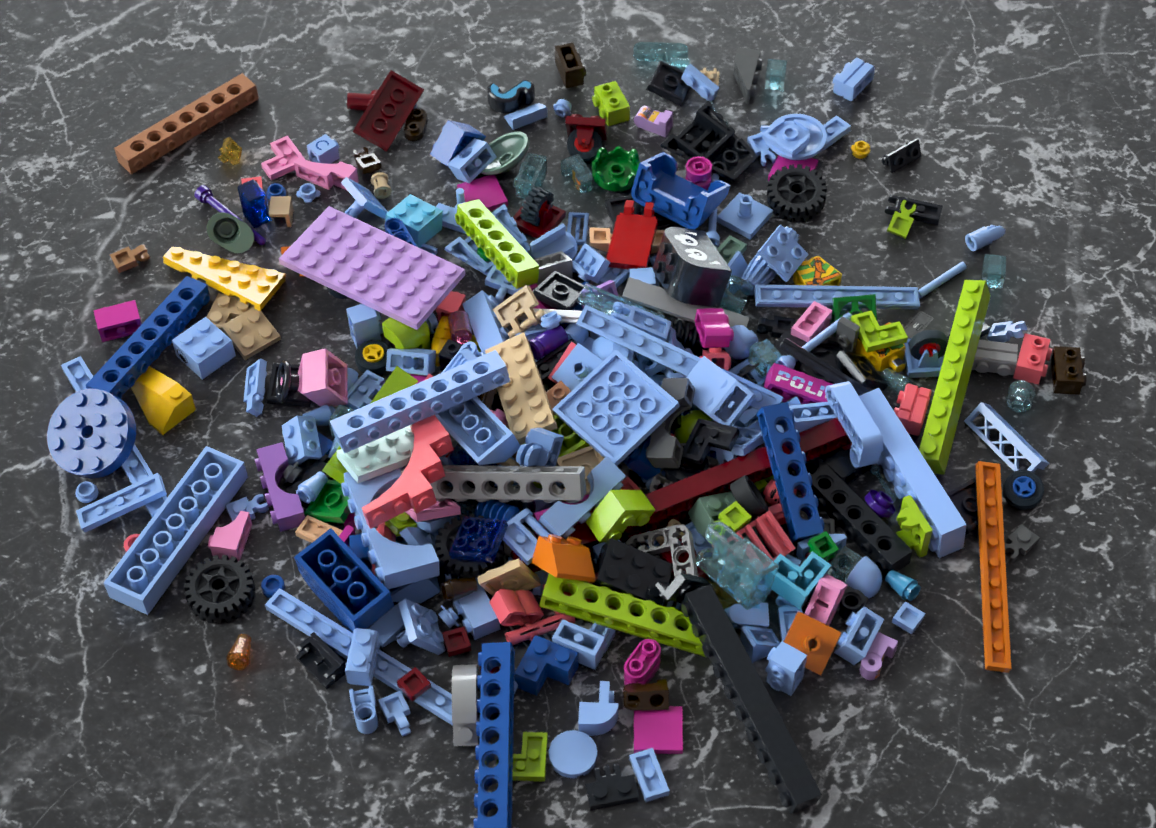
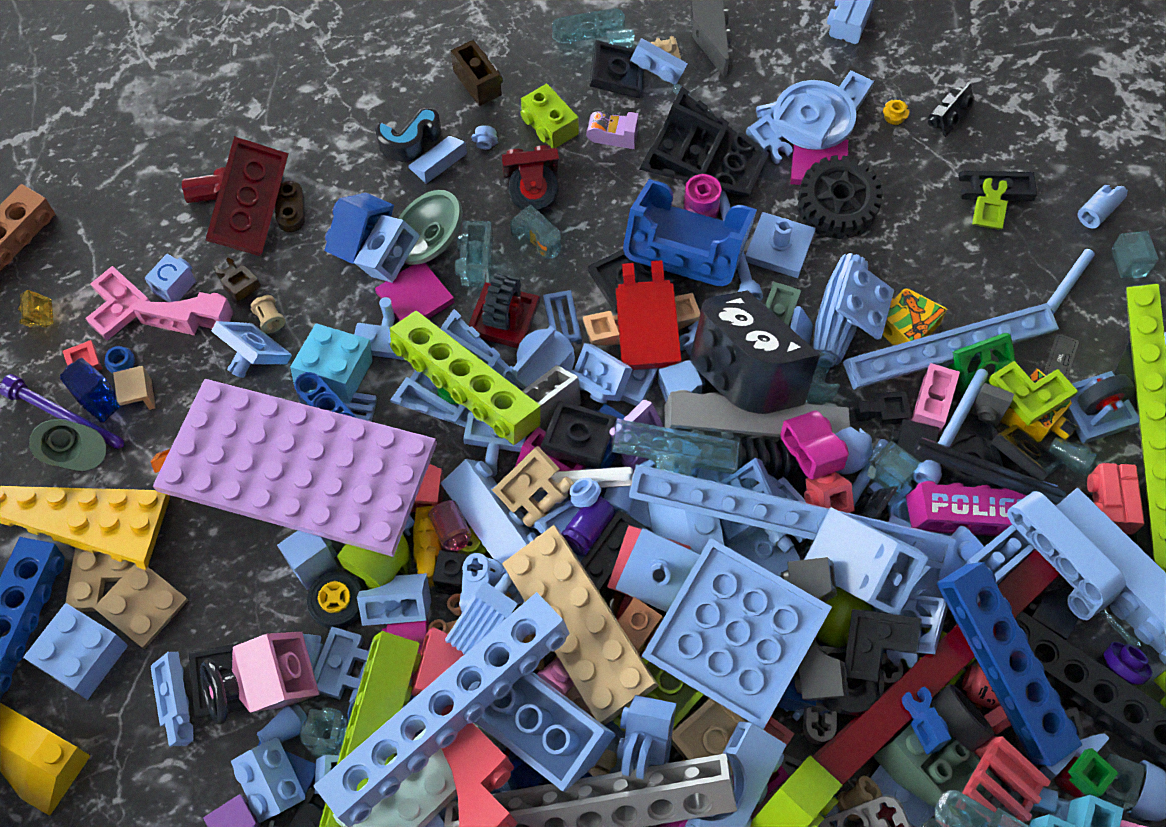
camera: 15 degrees left, 10 degrees up
(308, 192) = (161, 344): light blue plate -> none
(620, 160) = (583, 200): green plate -> none
(642, 320) = (718, 464): light blue hinge -> none
(722, 492) = (927, 724): none -> blue plate
(734, 517) = (957, 766): lime plate -> none
(775, 74) = (750, 27): clear light blue brick -> none

